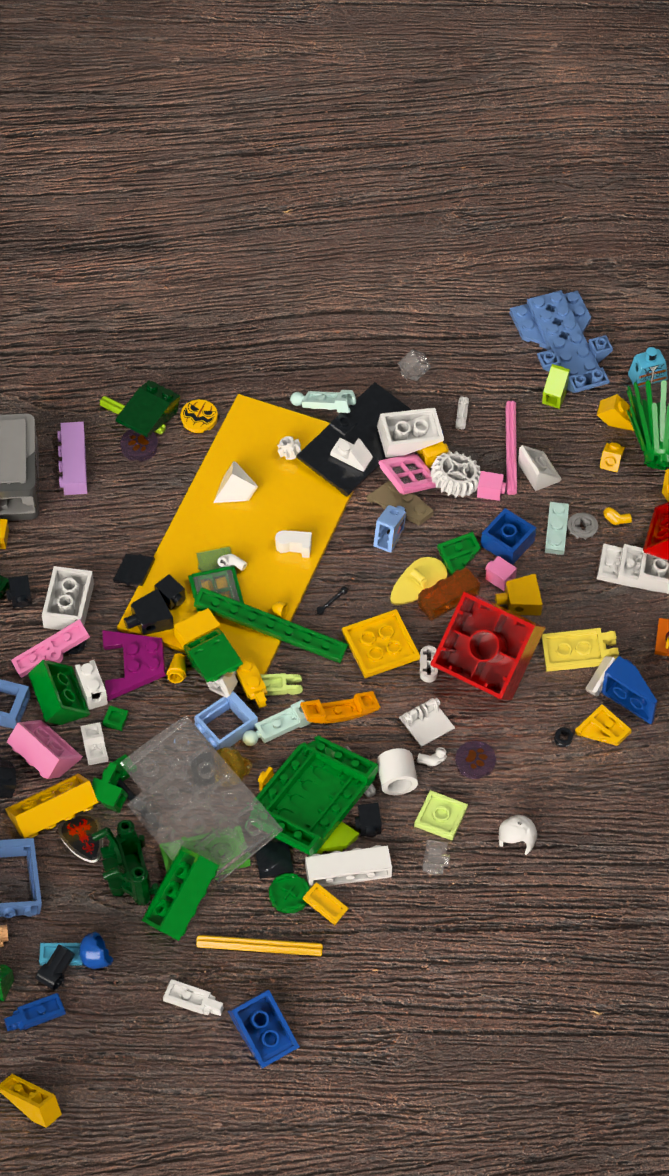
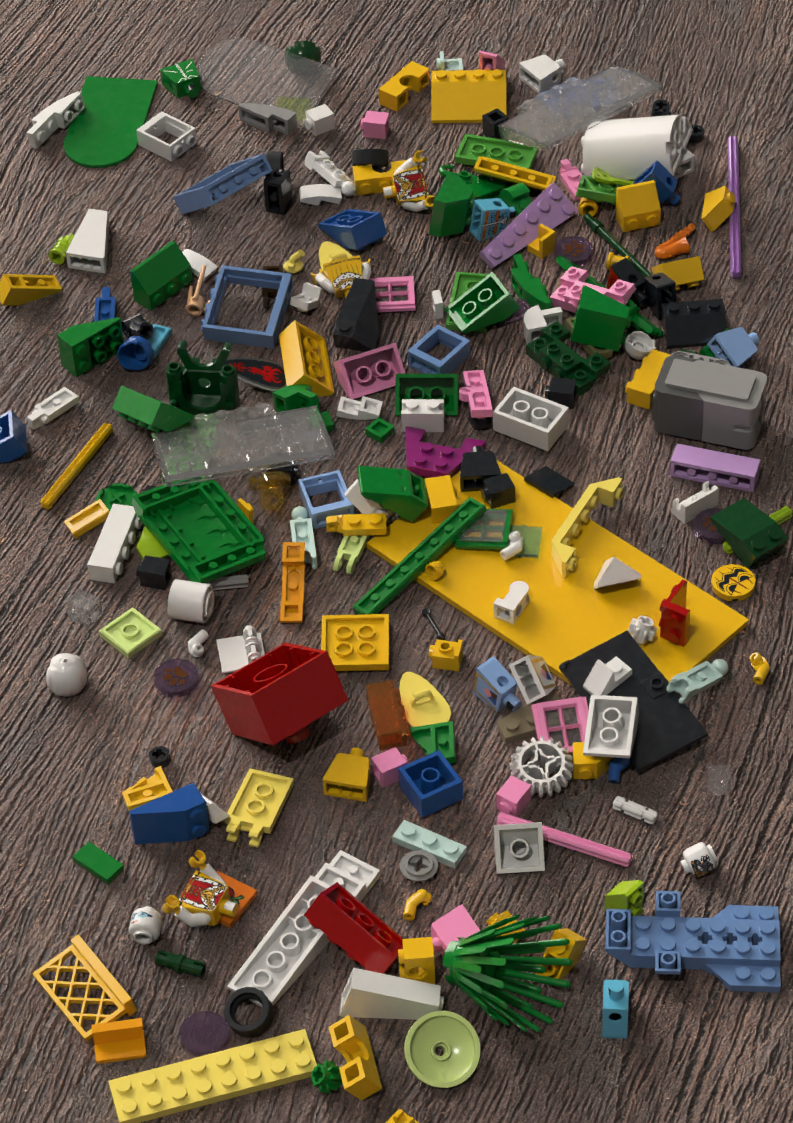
camera: 115 degrees right, 10 degrees down
(110, 996) = (89, 344): none -> green slope
(120, 461) = (695, 504): none -> white hinge
(195, 529) = (602, 492): none -> light yellow slope
(266, 427) = (675, 616): none -> red bracket
(285, 374) = (761, 667): none -> yellow arm
(365, 574) = (446, 655): none -> yellow brick
(370, 501) = (532, 677): none -> white torso
(493, 360) = (699, 859): none -> white head
(635, 480) = (450, 926): none -> bright pink torso

